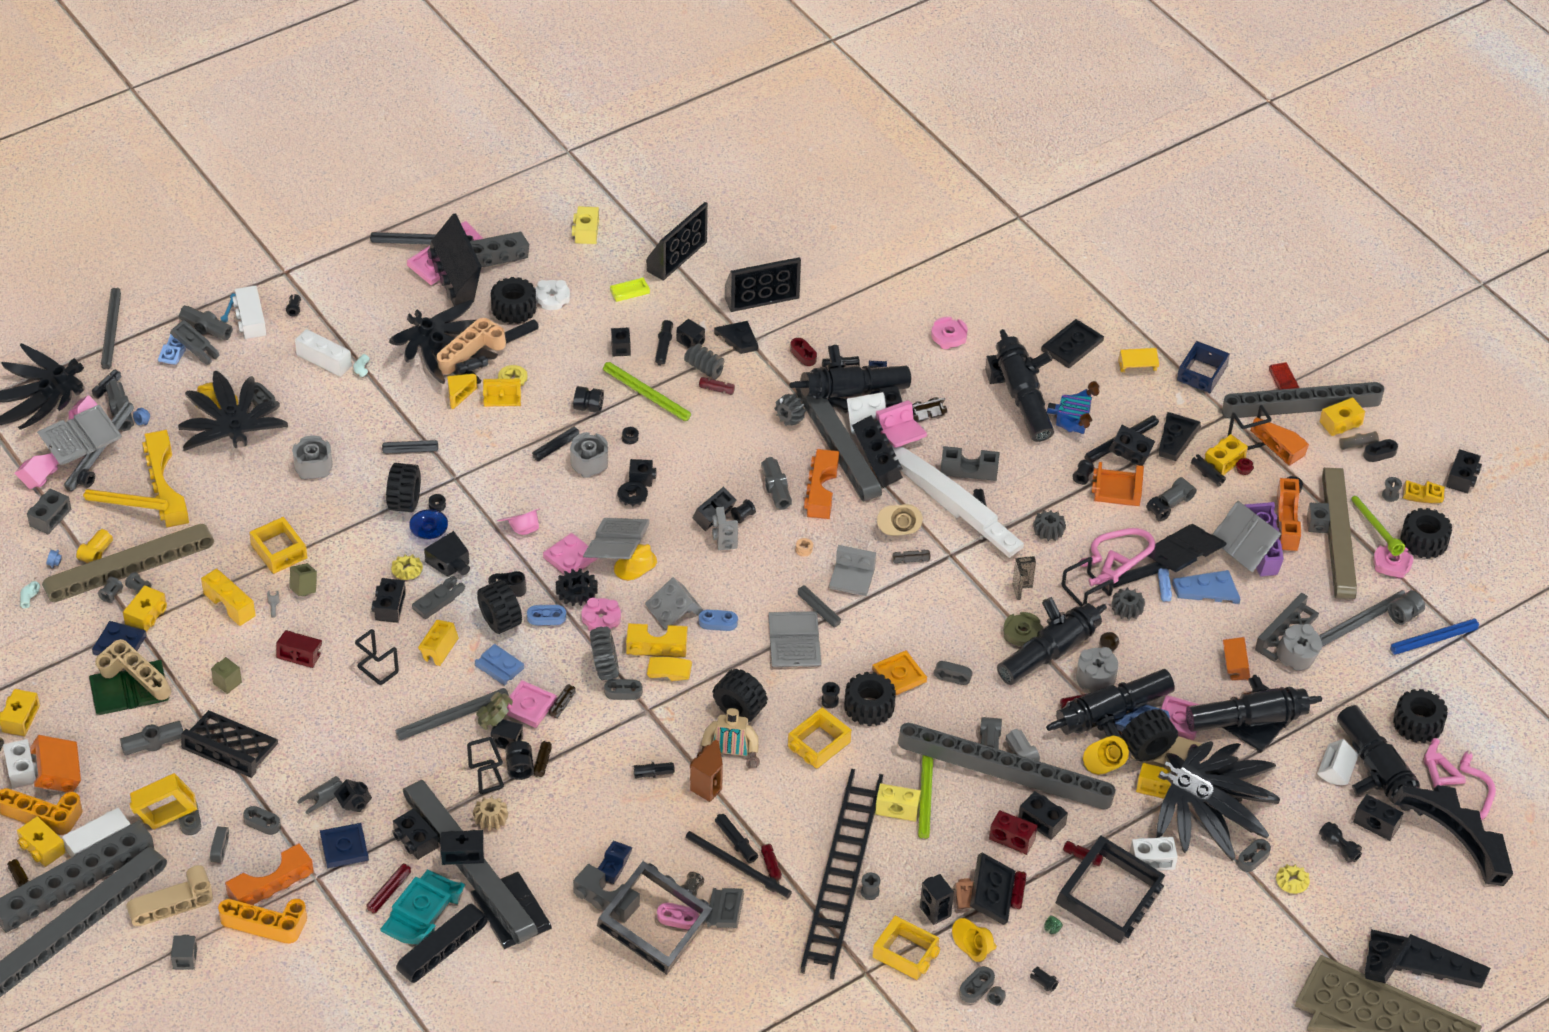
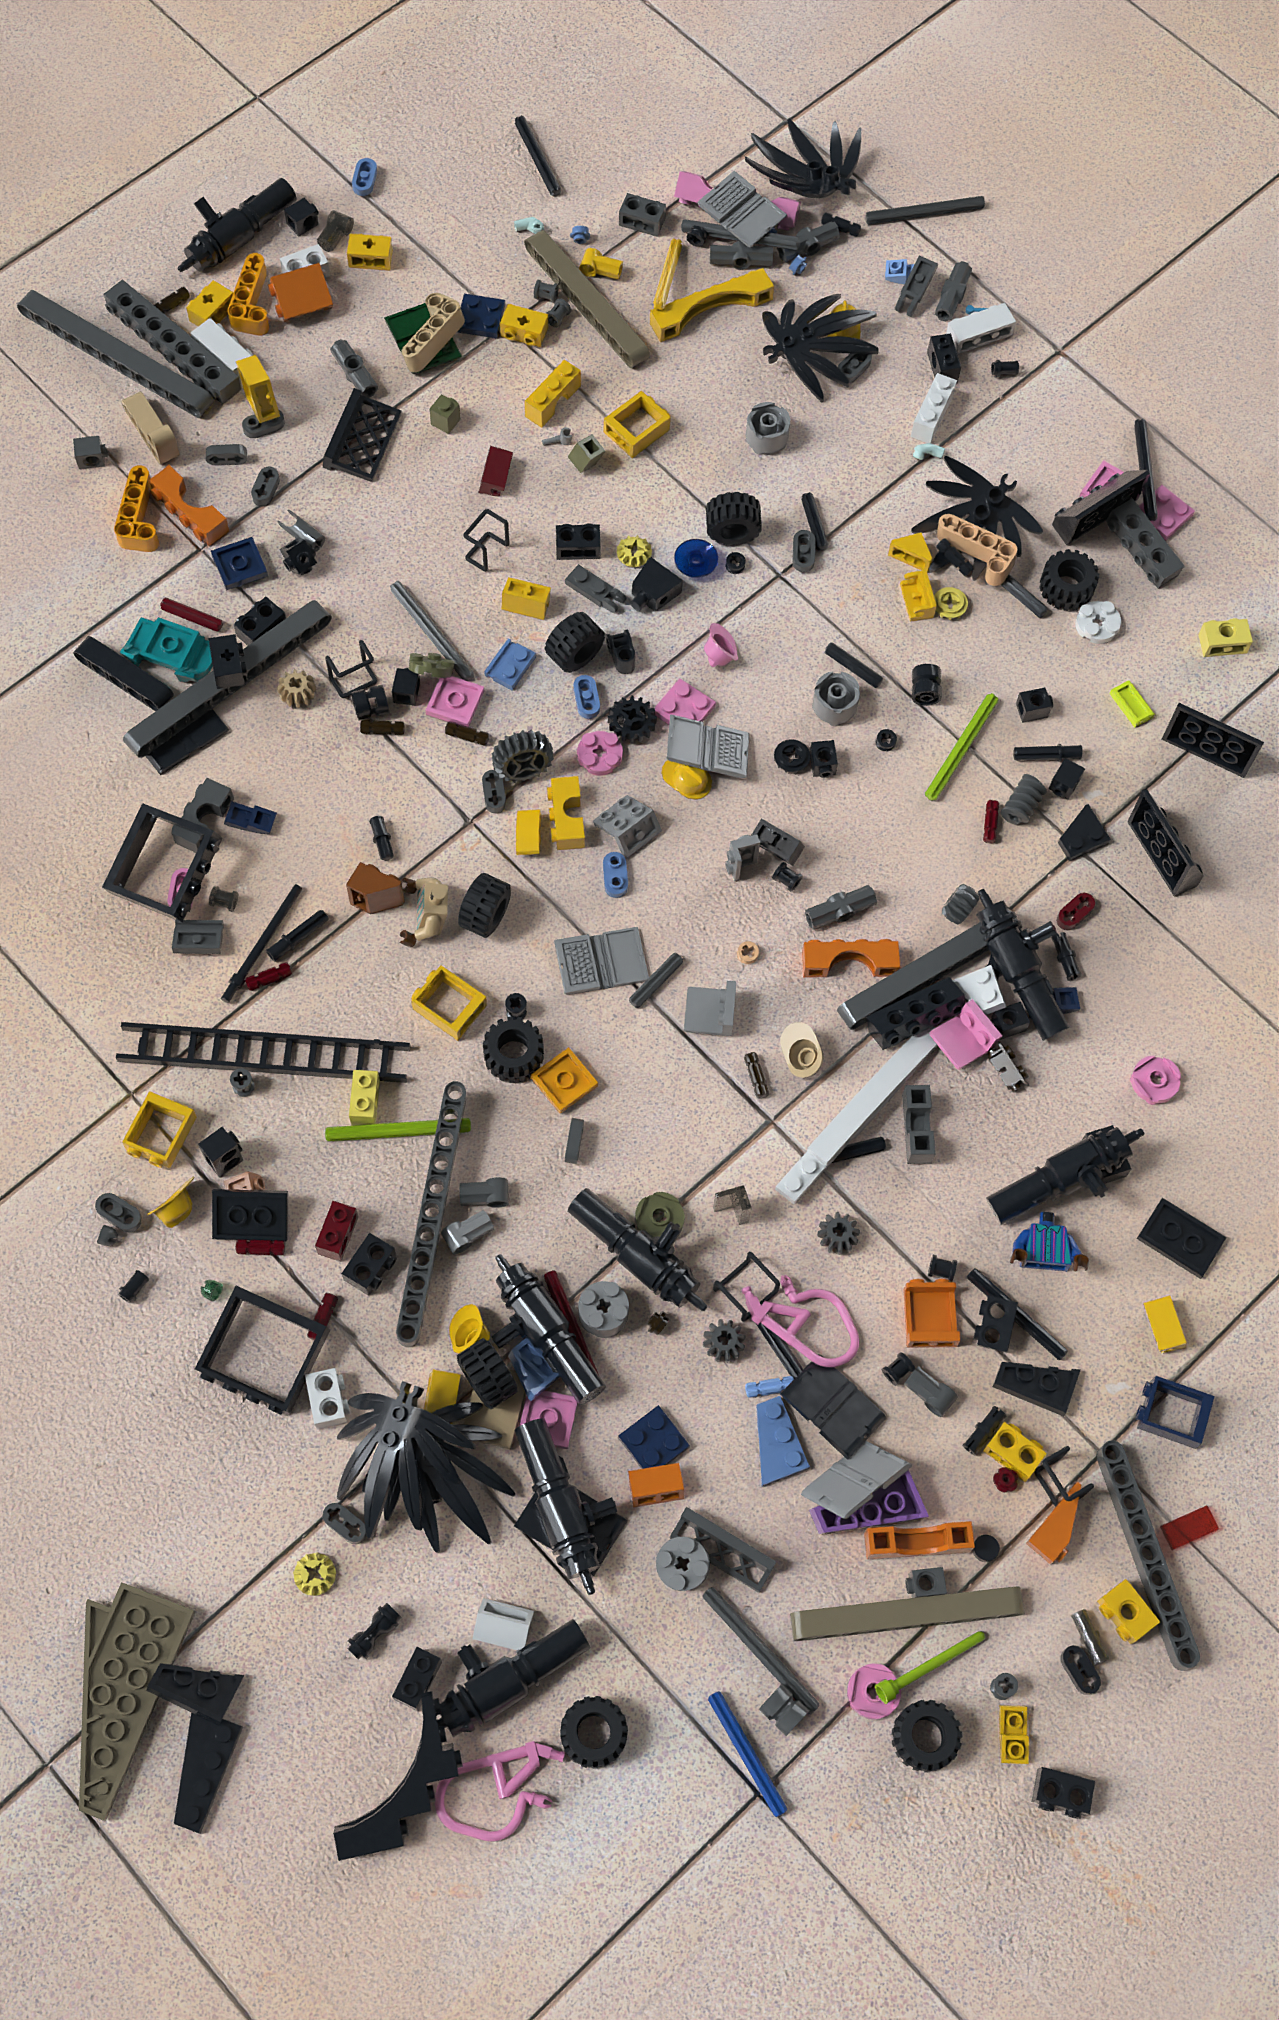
camera: 80 degrees right, 20 degrees up
(118, 452) = (740, 255): none -> dark grey piece
(276, 338) = (943, 356): none -> black brick
(439, 456) = (803, 552): none -> dark grey plate
(1201, 659) = (653, 1440): none -> dark blue plate

